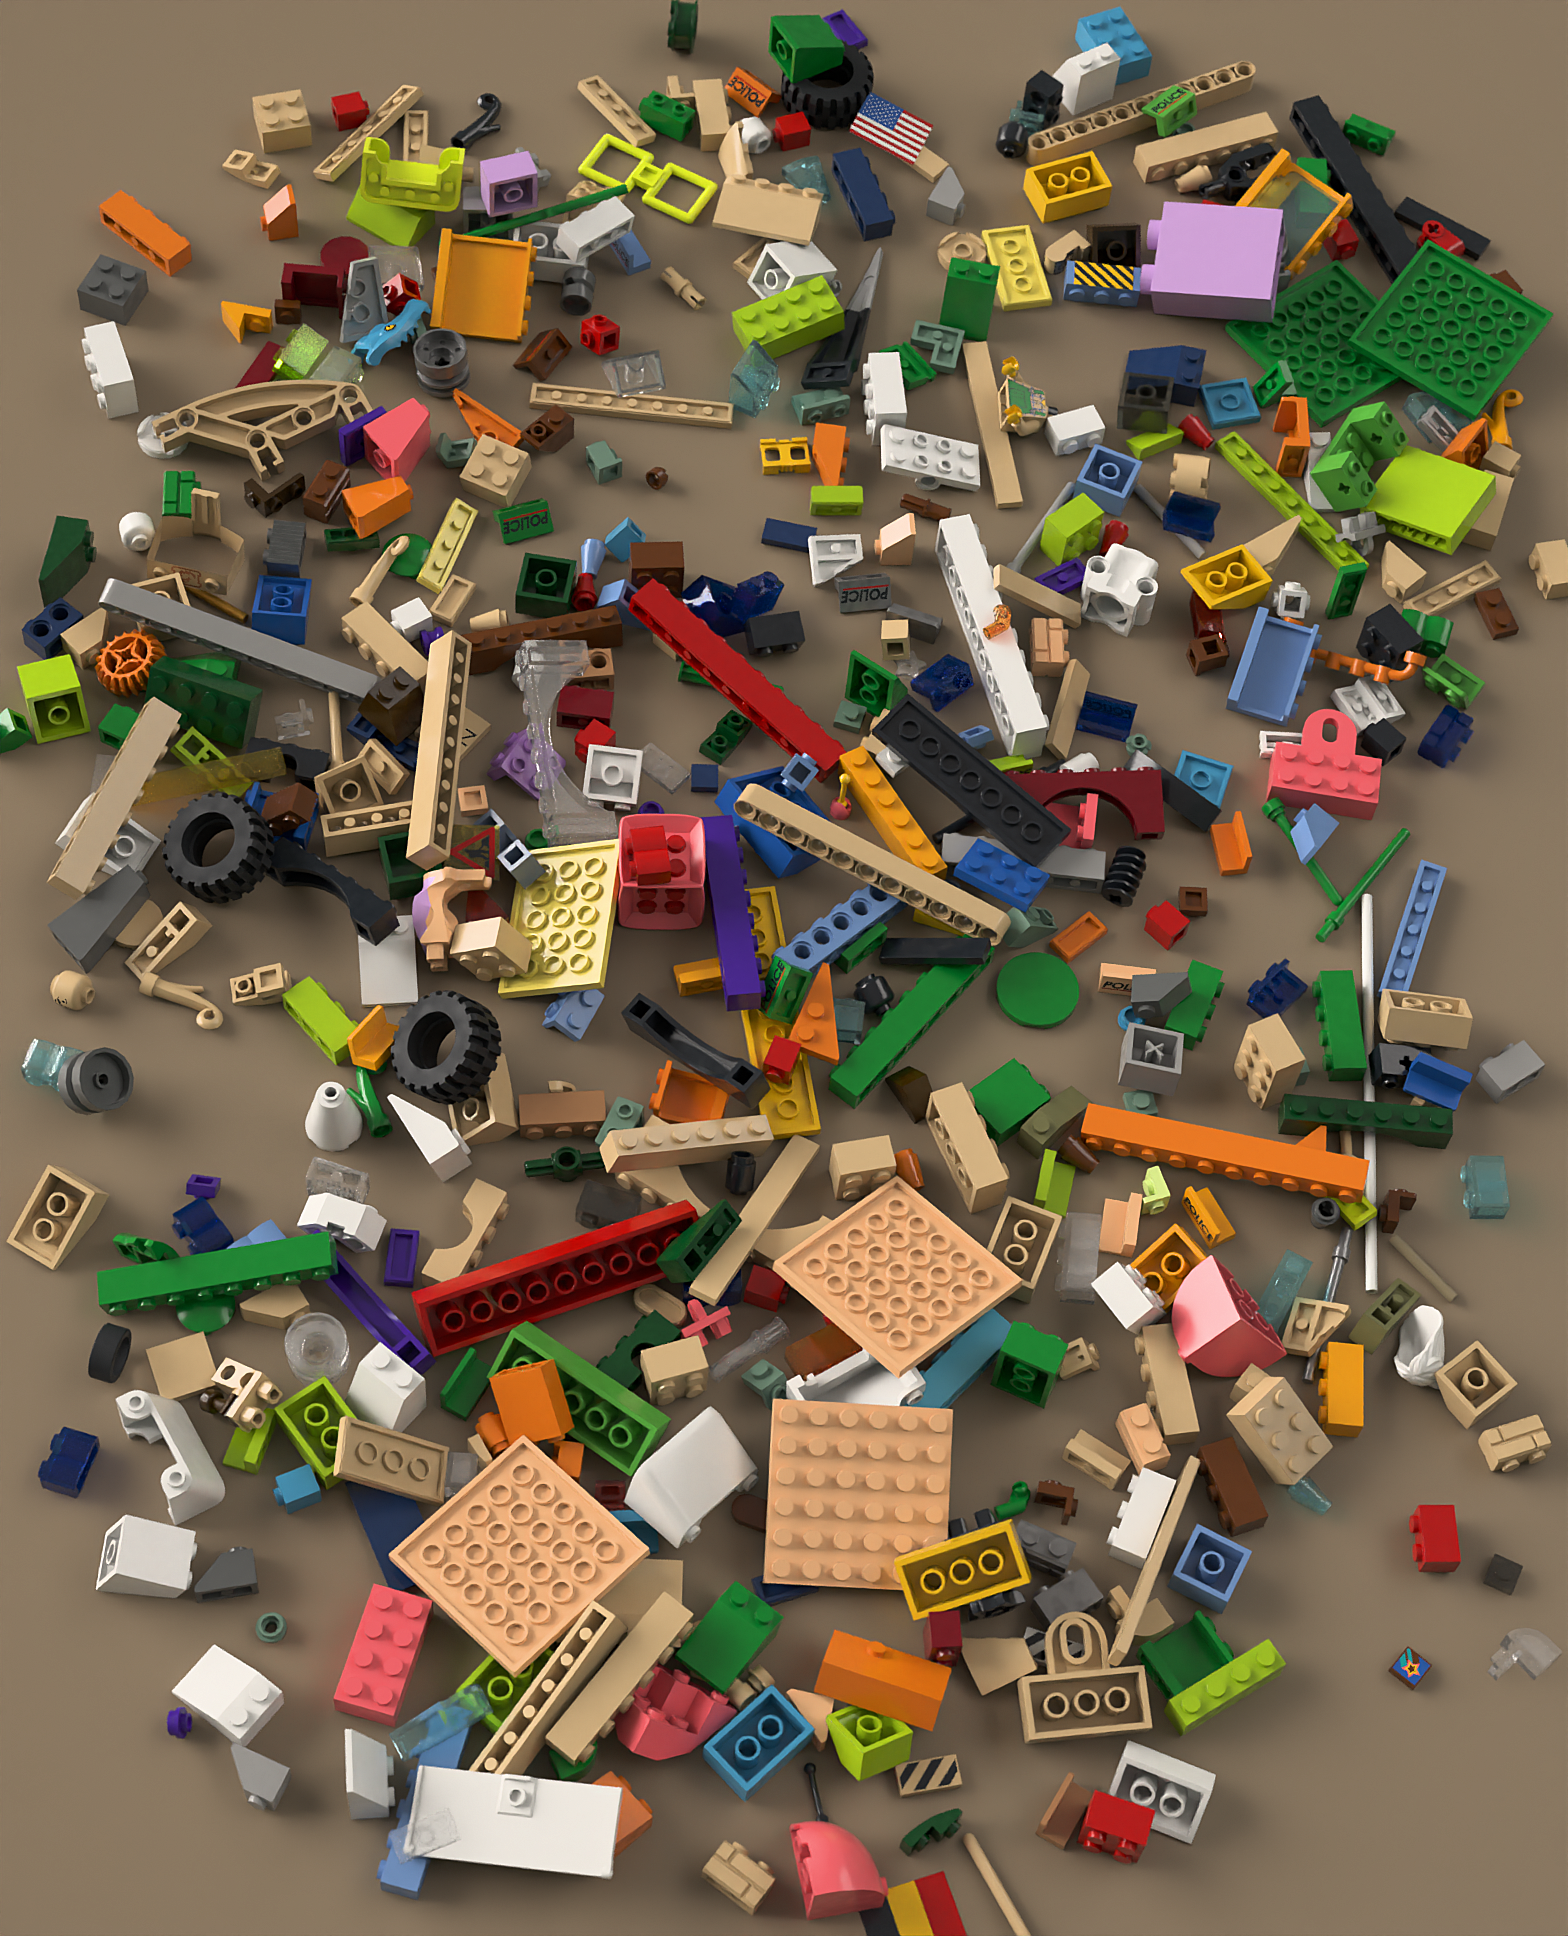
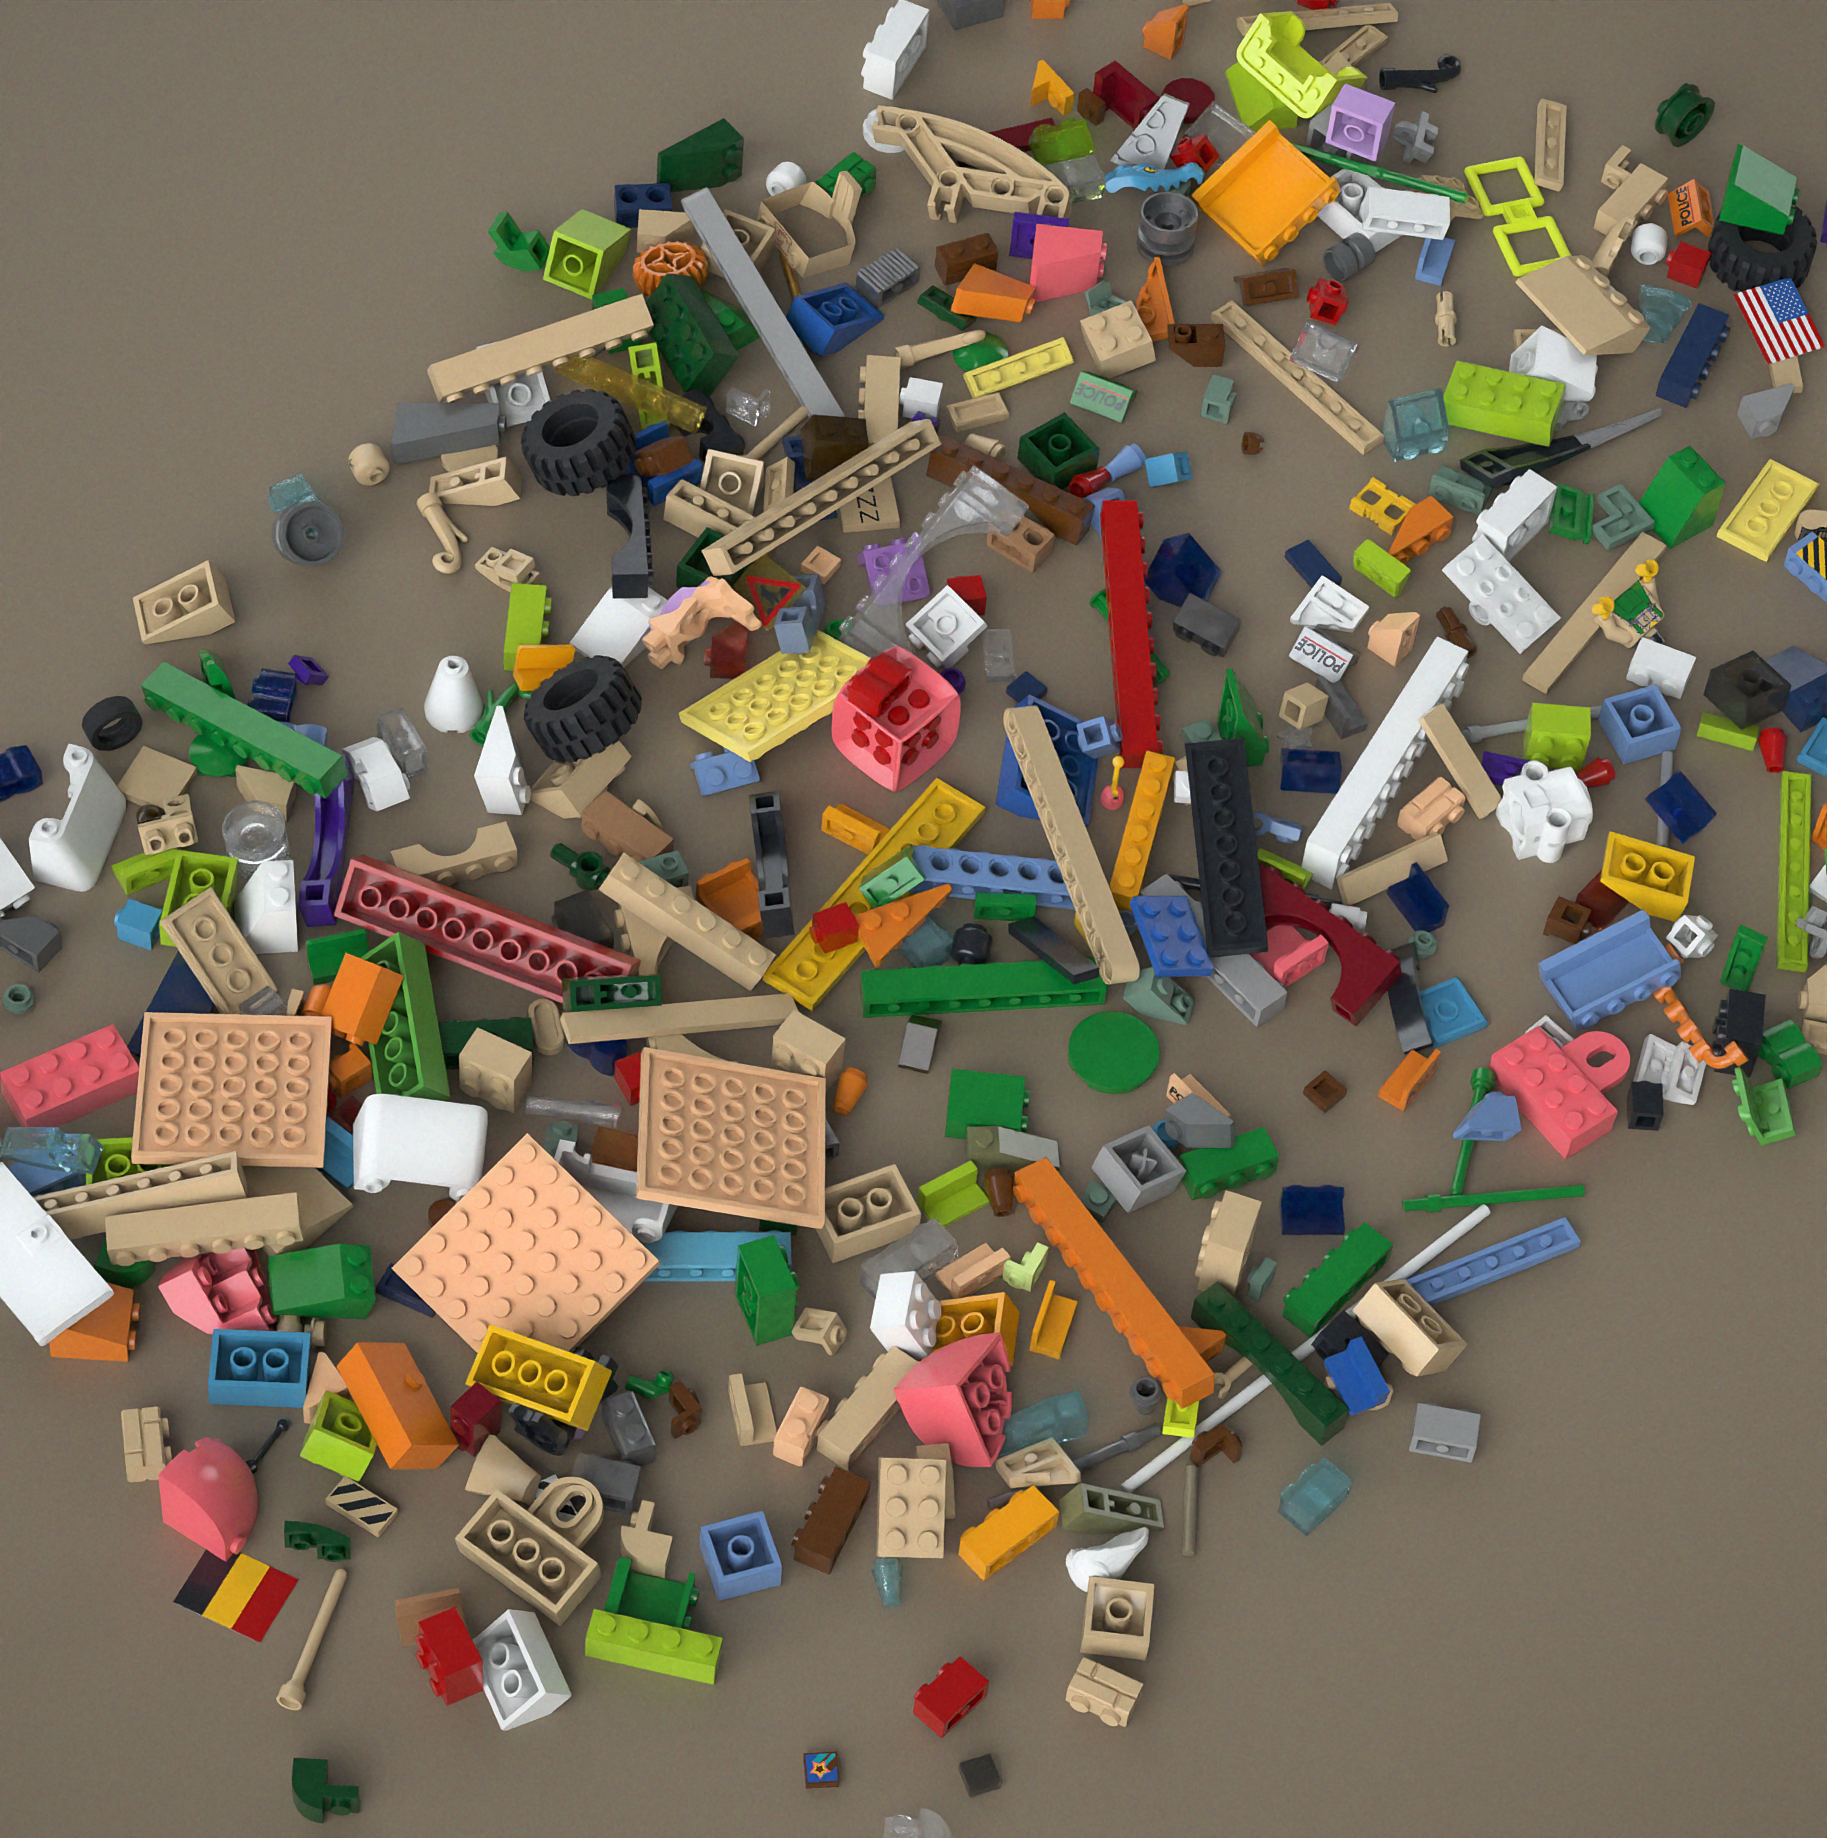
camera: 45 degrees right, 5 degrees down
(273, 502) = (923, 236): dark brown bracket -> none
(401, 1258) = (397, 834): dark purple tile -> none
(491, 948) = (700, 671): tan brick -> none
(581, 705) = (985, 558): dark red brick -> none
(659, 561) = (1165, 503): reddish brown brick -> none
(667, 115) = (1588, 176): green brick -> none
(717, 1321) = (573, 1067): coral hips -> none
(726, 737) = (1085, 674): dark green slope -> none
(730, 915) = (919, 792): dark purple brick -> none
(740, 1172) = (712, 981): black brick -> none
(756, 595) = (1221, 584): clear blue brick -> none
(961, 246) = (1734, 463): tan tile -> none
(967, 1147) = (909, 1106): tan brick -> none
(1001, 623) = (1391, 748): clear orange arm -> none
(1078, 937) = (1196, 1042): orange tile -> none
(1124, 876) = (1284, 1023): black piece -> none
(1140, 1517) = (734, 1479): white brick -> none
(1153, 1561) = (699, 1507): tan tile -> none
(1166, 924) = (1279, 1089): red brick -> none
(1191, 475) = (1717, 776): tan brick -> none
(1272, 545) = (1724, 886): tan slope -> none
(1445, 737) = (1708, 1146): clear blue brick -> none

